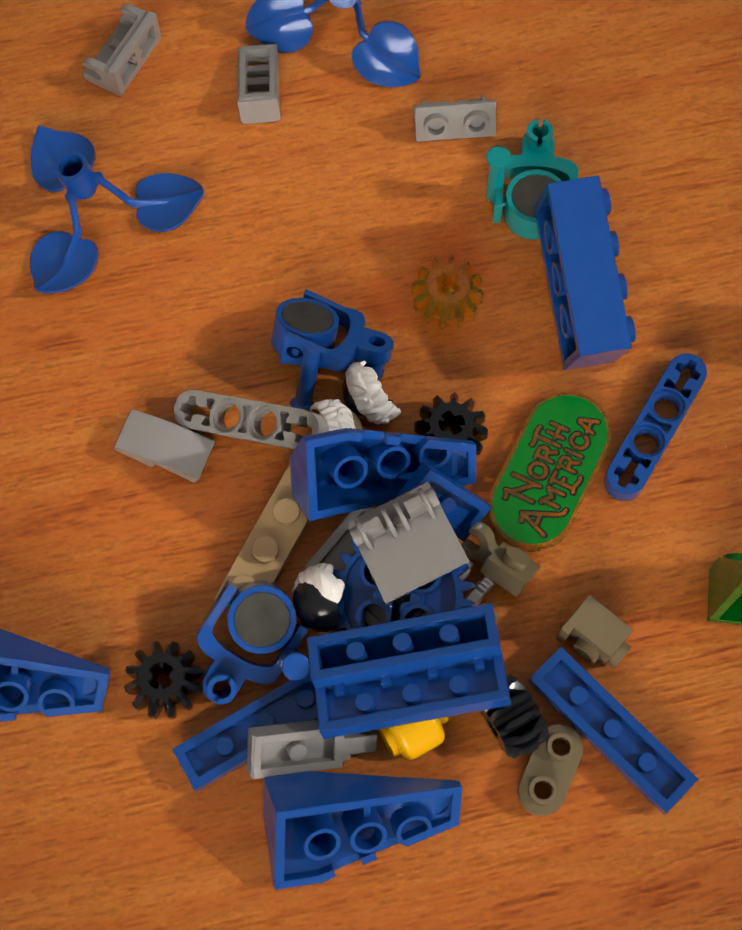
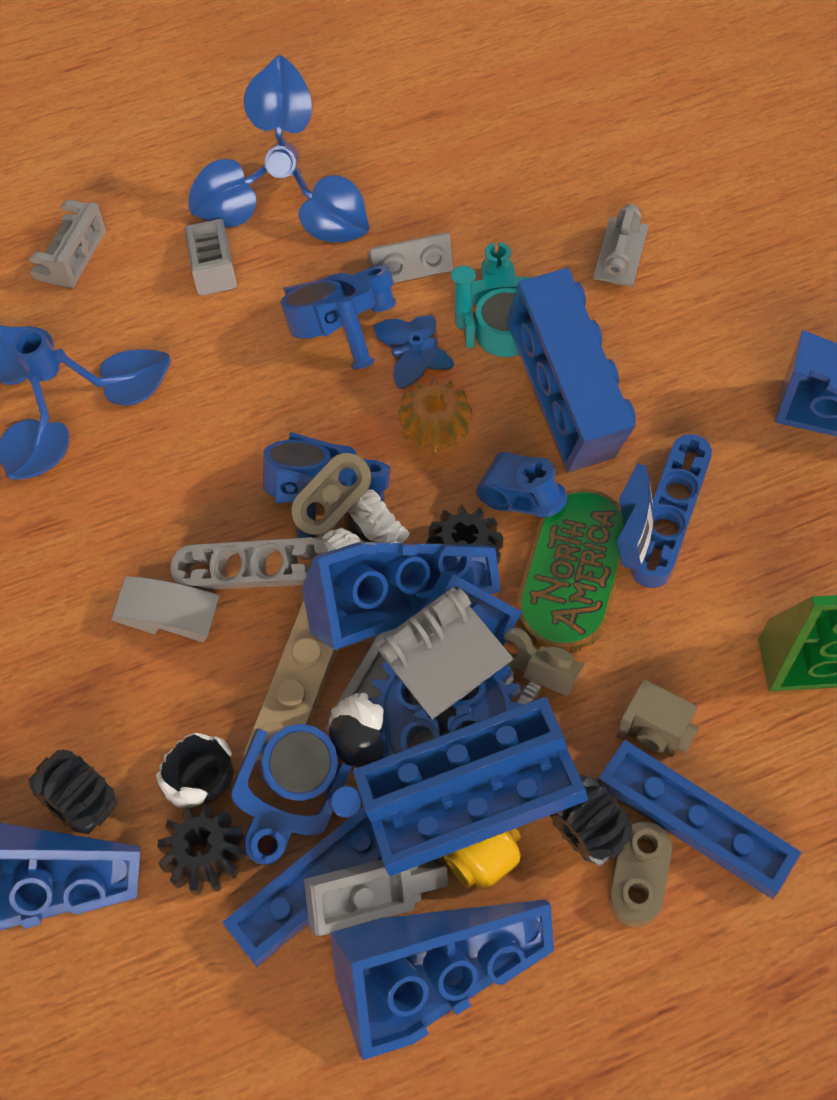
camera: 10 degrees left, 10 degrees down
(57, 609) = (73, 791): none -> black gear
(169, 607) = (196, 771): none -> black hair
(332, 367) = (328, 491): none -> dark tan plate
(354, 162) = (321, 308): none -> blue piece
(443, 214) = (416, 345): none -> blue piece
(516, 381) = (522, 485): none -> blue piece
(620, 428) = (637, 517): none -> blue slope
(667, 140) = (622, 247): none -> light grey hinge

